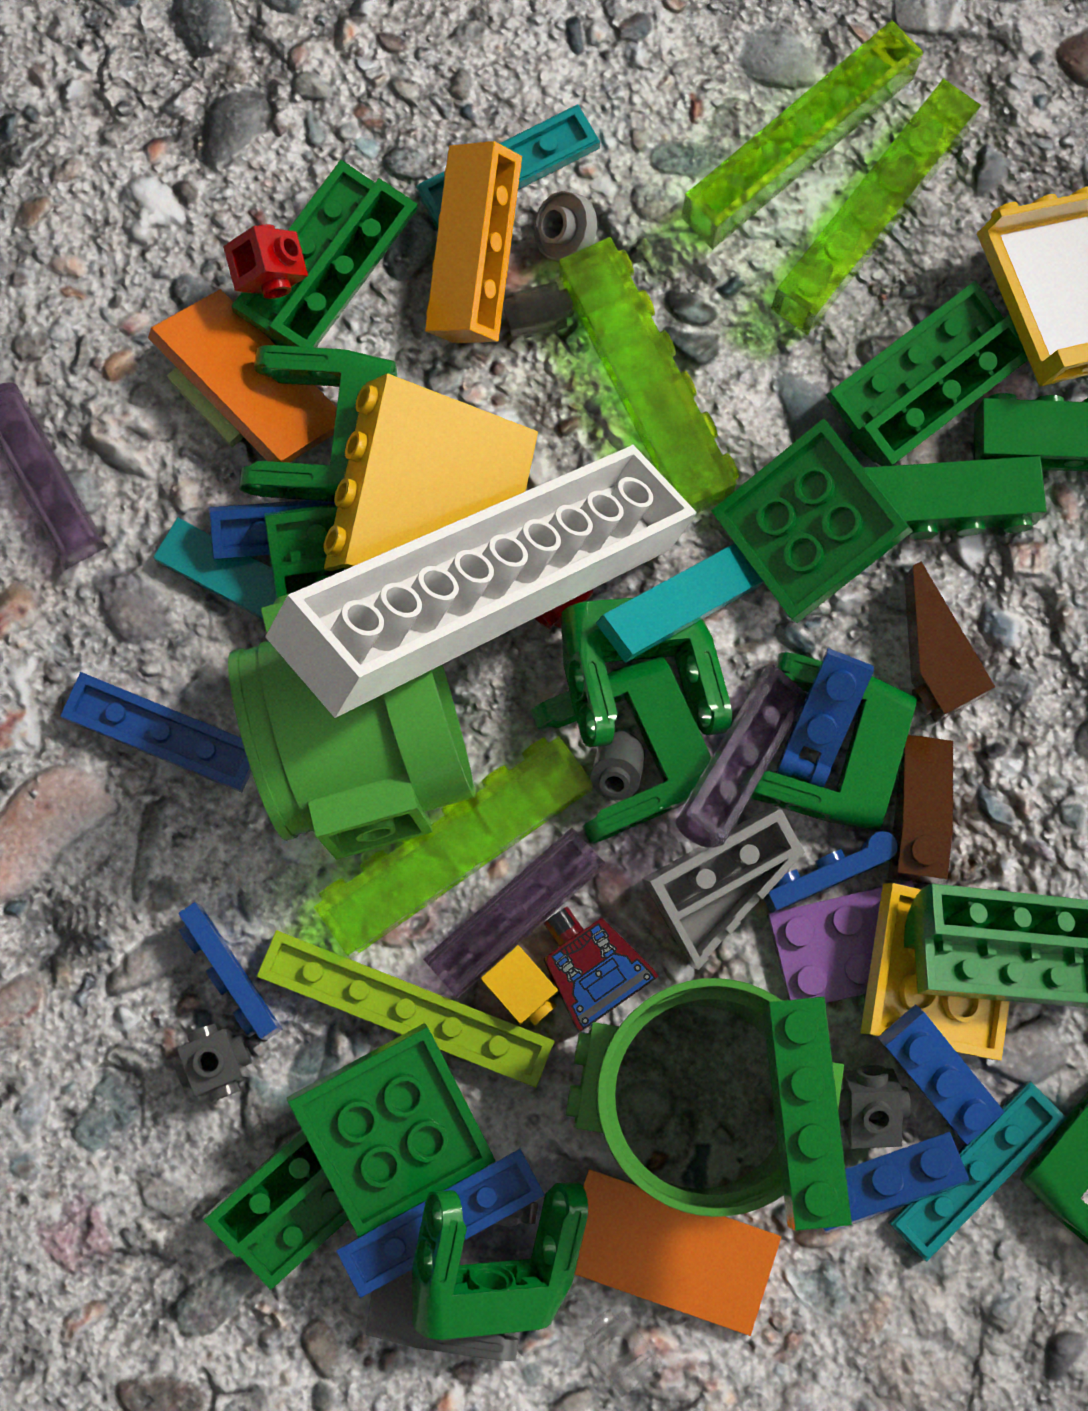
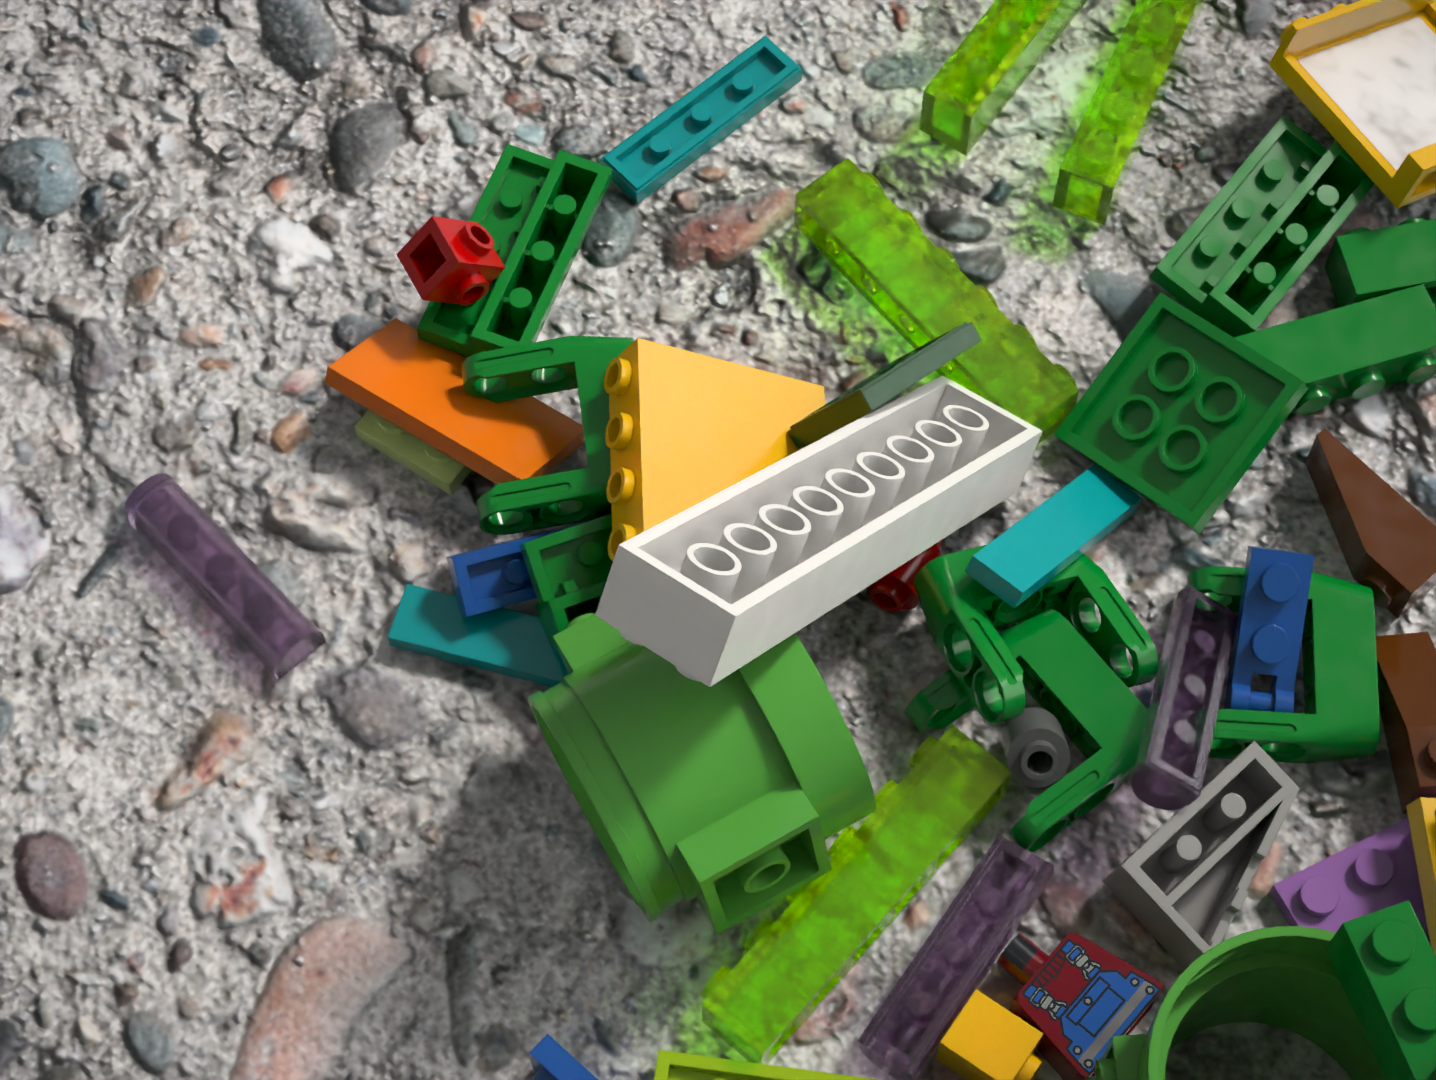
camera: 10 degrees left, 15 degrees down
(158, 731) = (448, 842): blue plate -> none
(473, 242) = (689, 199): light orange brick -> none
(538, 310) = (782, 259): clear smoke brick -> none
(564, 225) = (787, 160): light grey plate -> none
(580, 447) = (883, 385): none -> dark green tile
(831, 871) = (1334, 815): blue plate -> none

